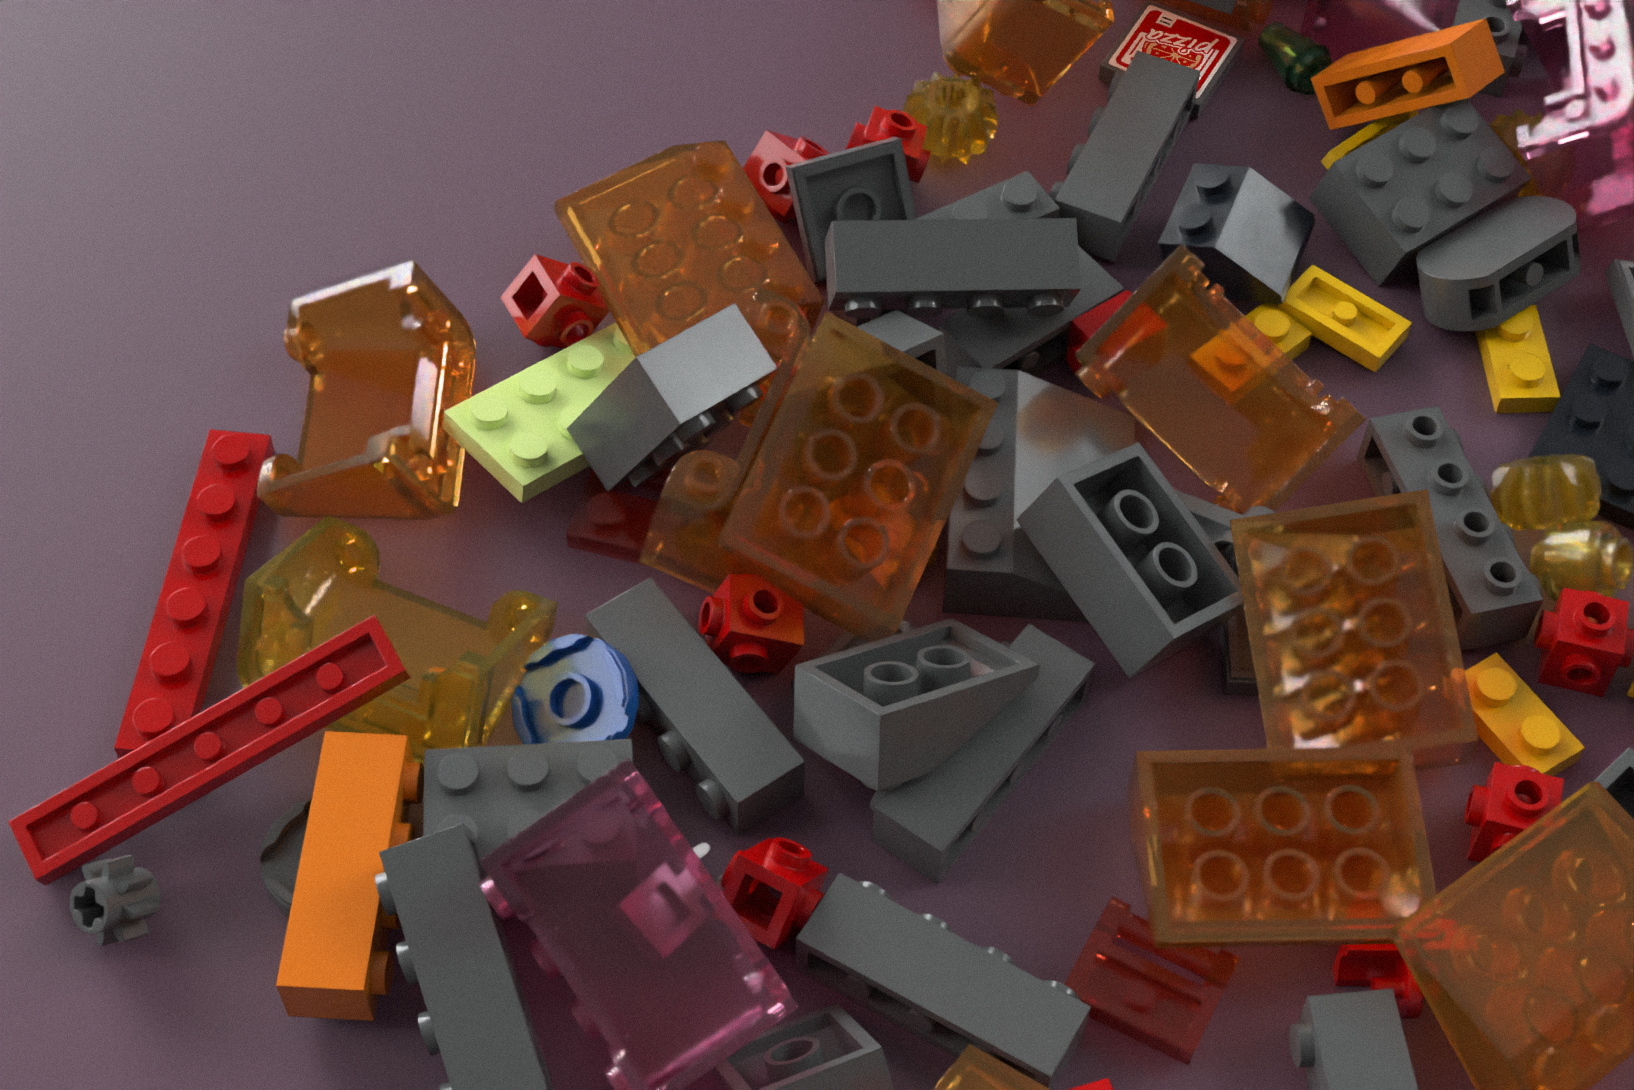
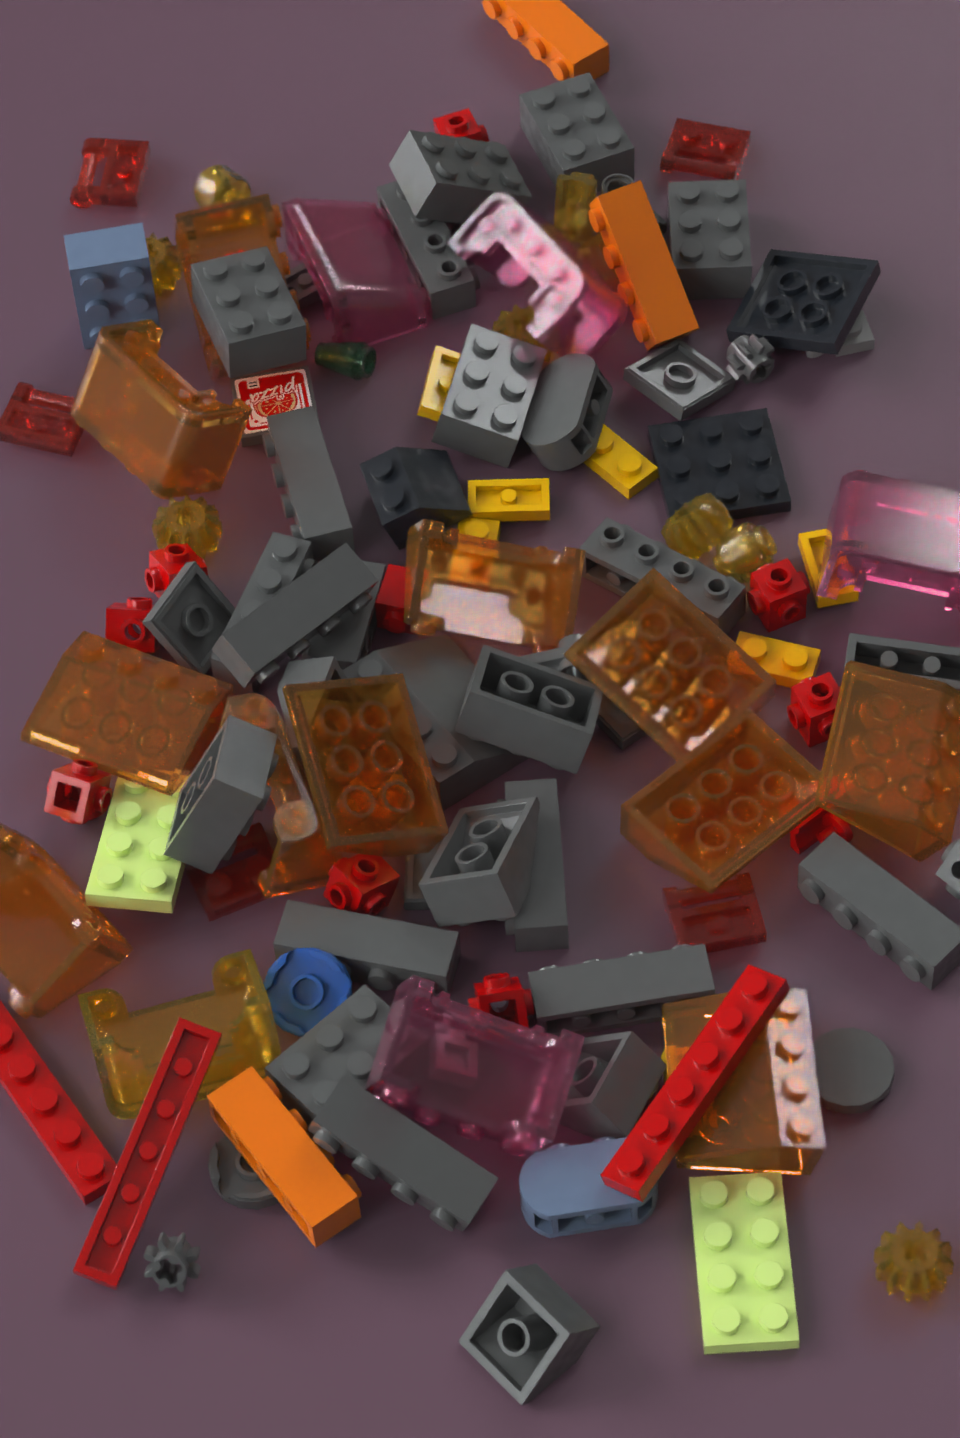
camera: 35 degrees left, 0 degrees up
(1408, 74) = (432, 332): orange brick -> none

